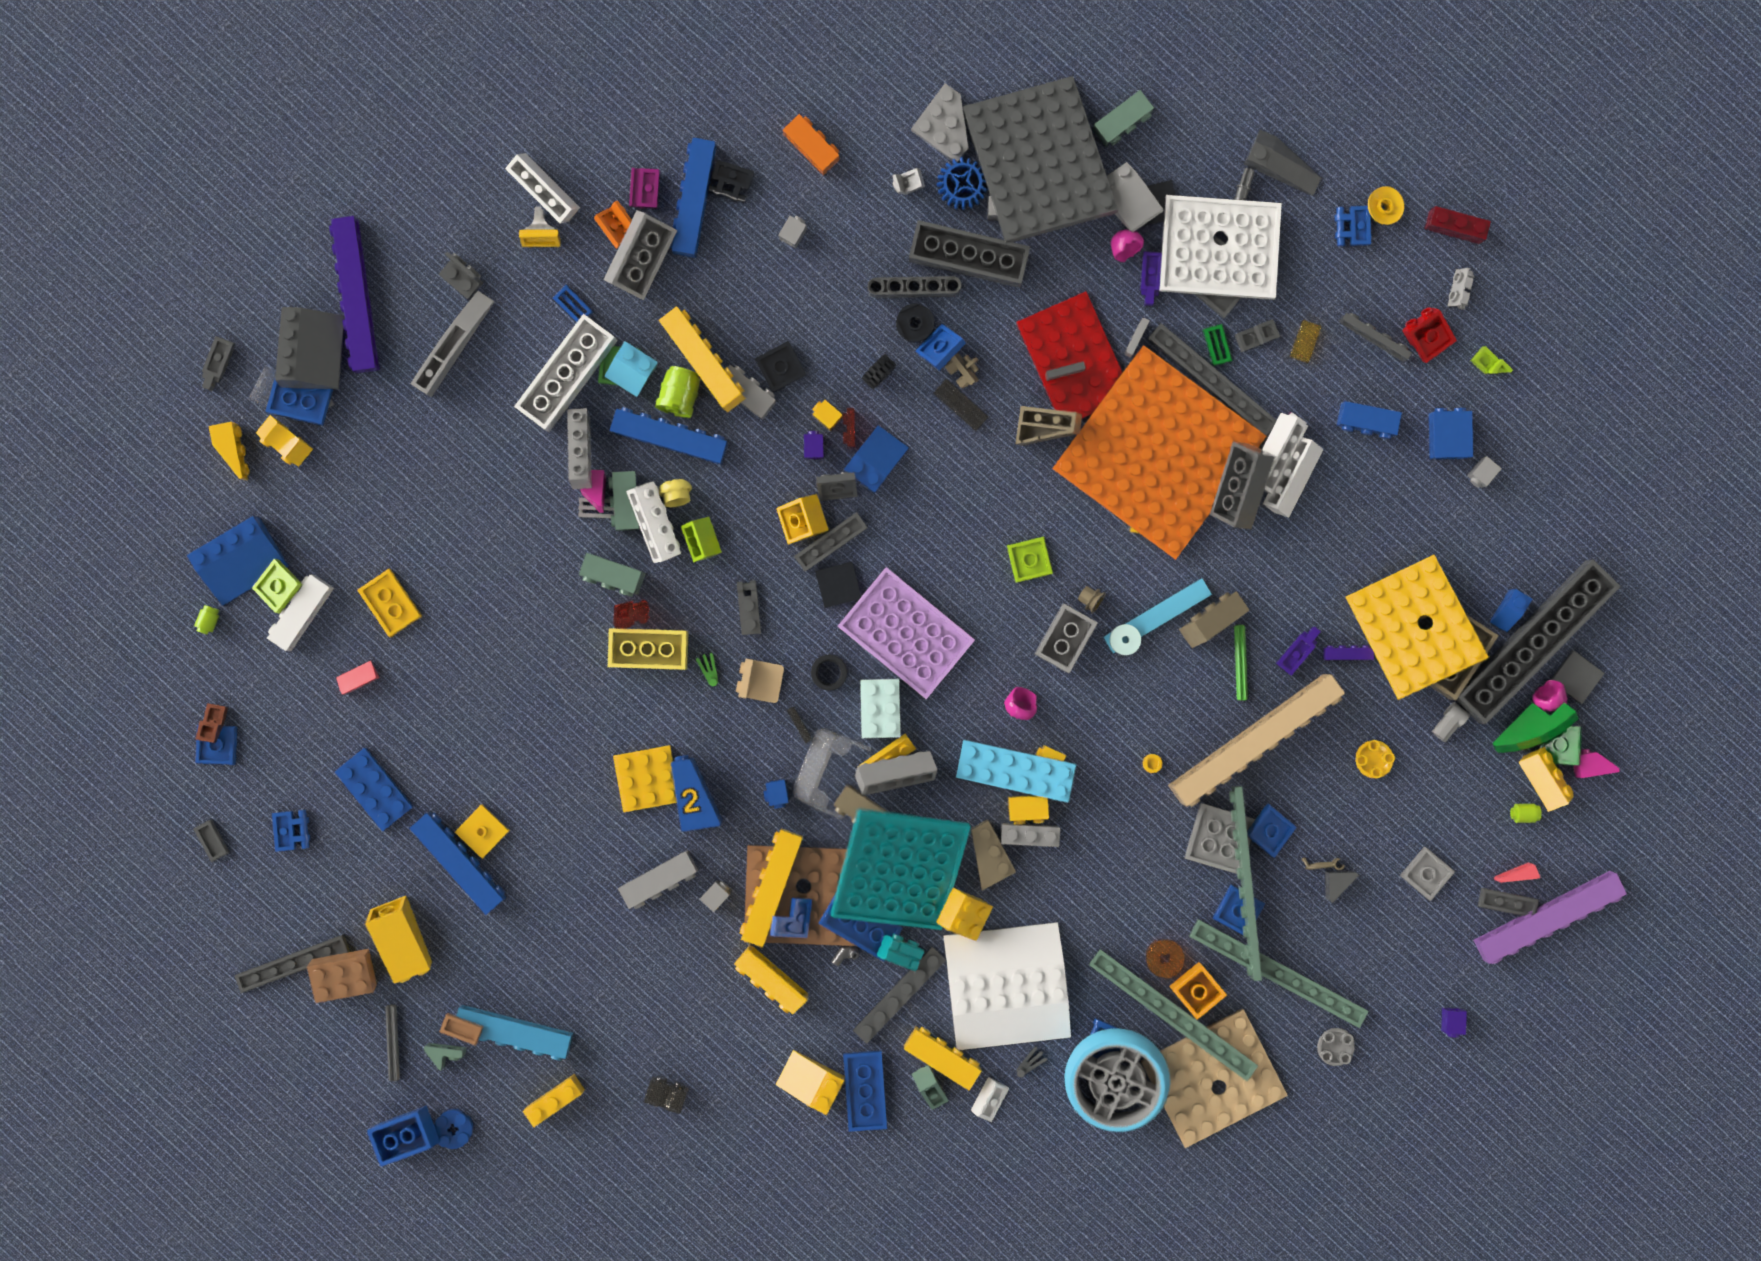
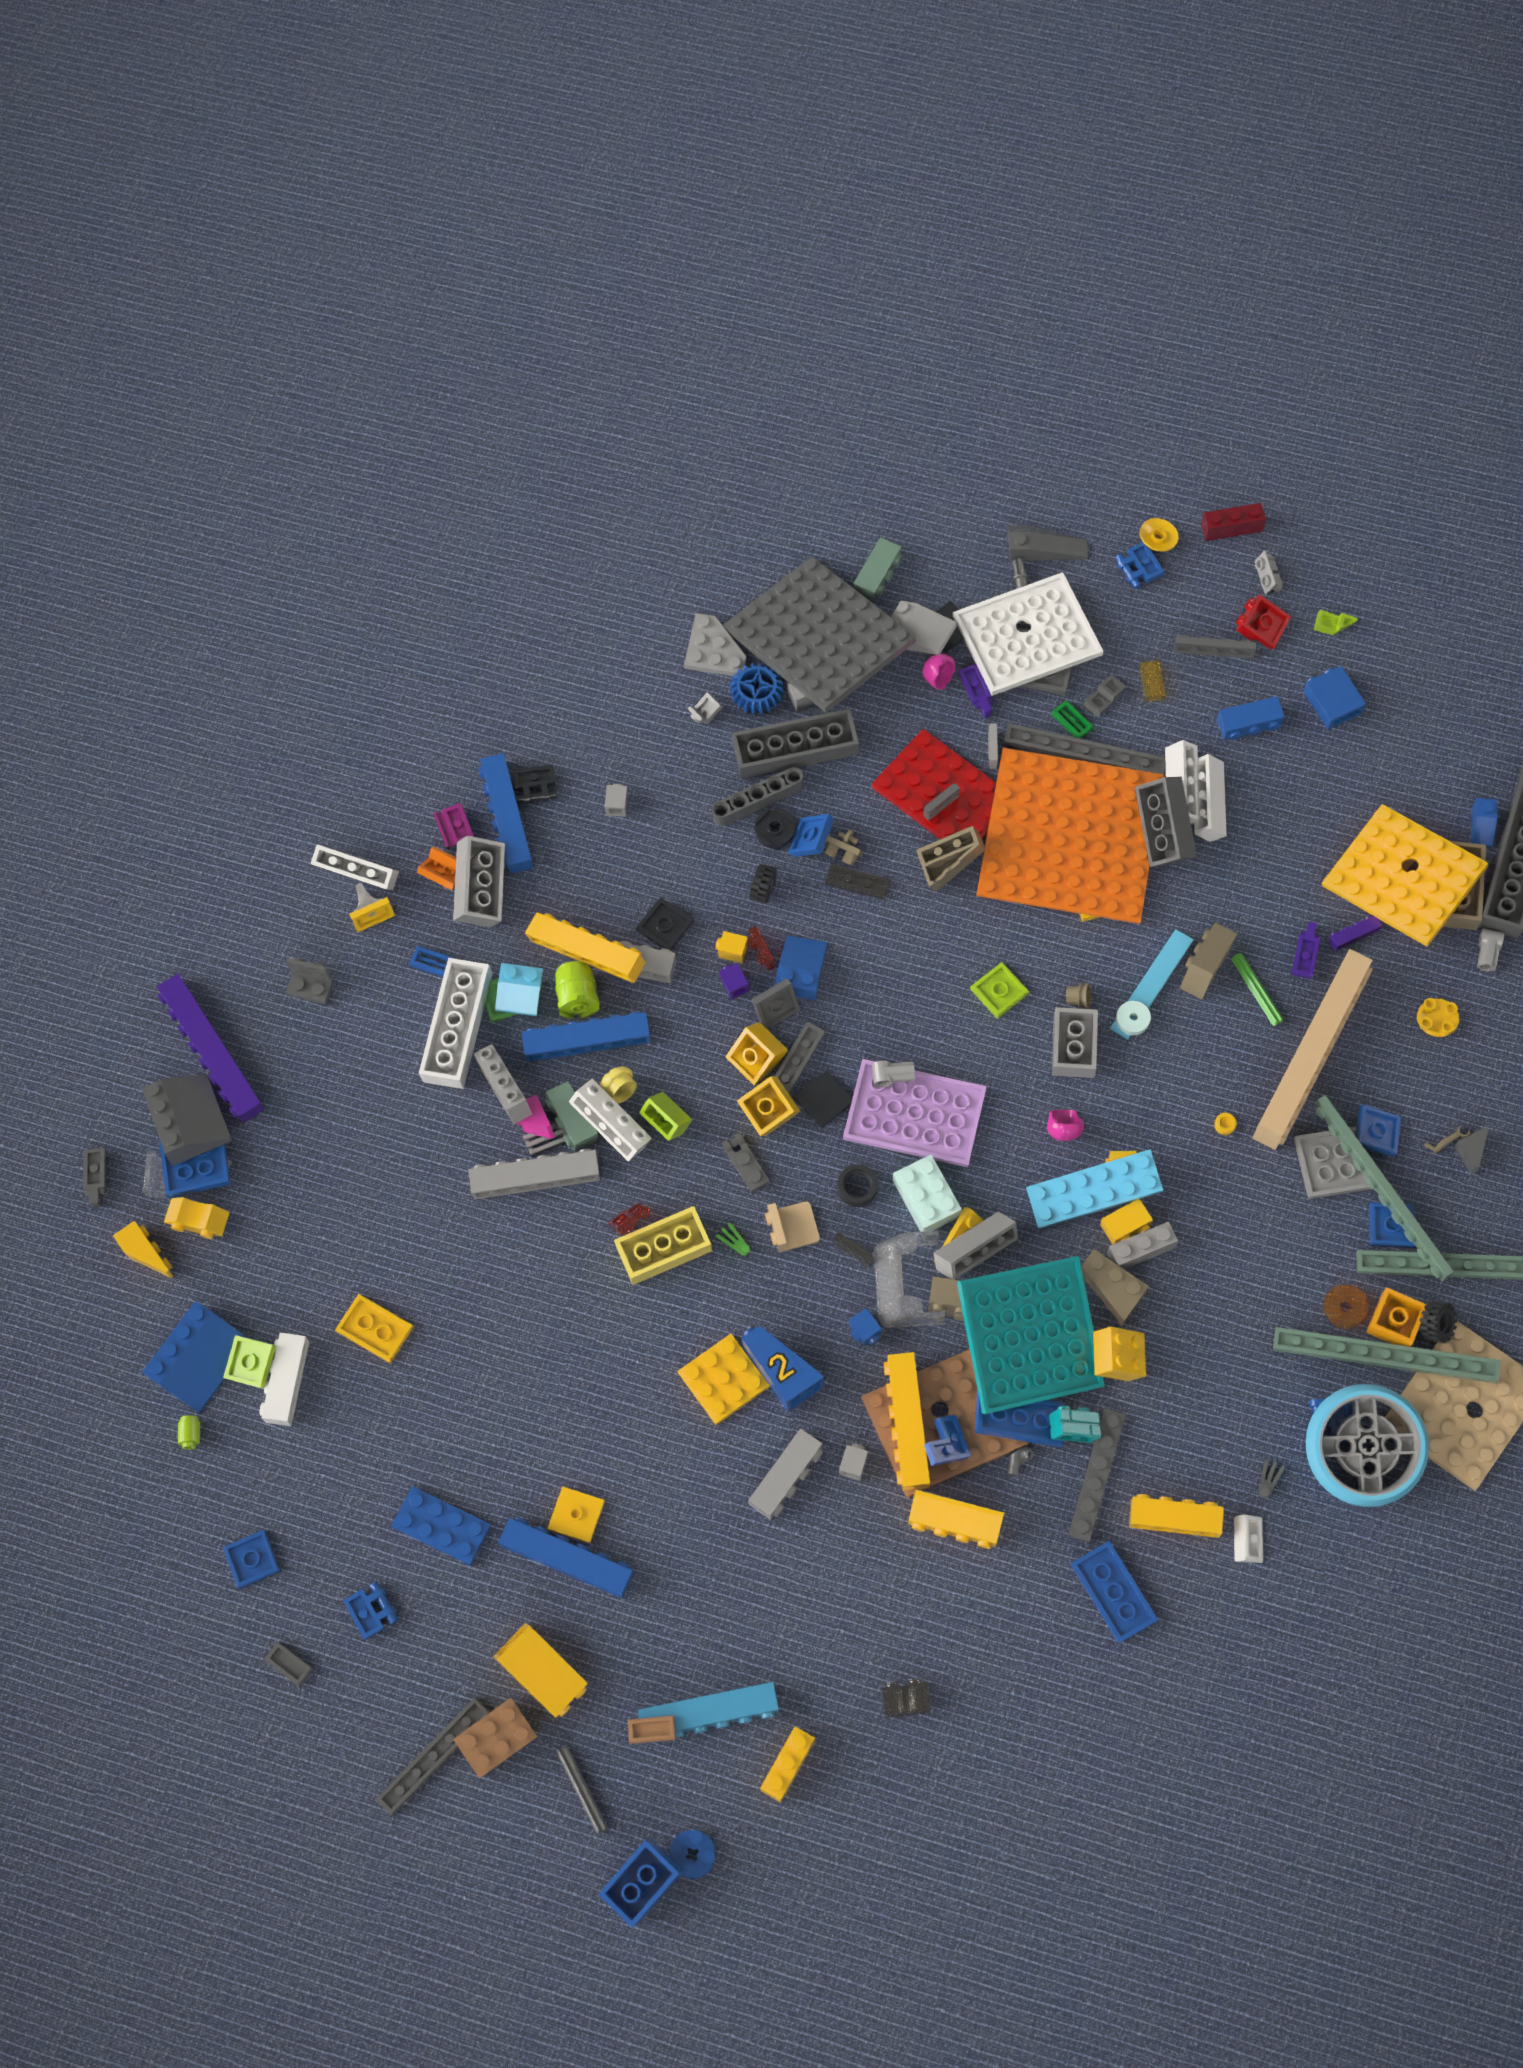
camera: 20 degrees left, 20 degrees down
(212, 723) = (238, 1535): copper slope -> none
(357, 678) = (373, 1419): coral slope -> none
(439, 1052) = (638, 1772): sand green slope -> none
(451, 344) = (328, 1051): light grey slope -> none
(573, 536) = (534, 1174): none -> light grey brick
(611, 575) = (591, 1189): sand green brick -> none
(788, 573) = (768, 1106): none -> yellow brick
(810, 1082) = (1051, 1610): yellow slope -> none
(811, 143) = (596, 718): orange brick -> none
(900, 592) = (887, 1073): none -> light grey piece
(929, 1087) = (1179, 1554): sand green slope -> none
(1008, 986) = (1204, 1412): white slope -> none
(1228, 1011) = (1438, 1322): none -> black tyre
(1483, 472) = (1384, 715): light grey brick -> none

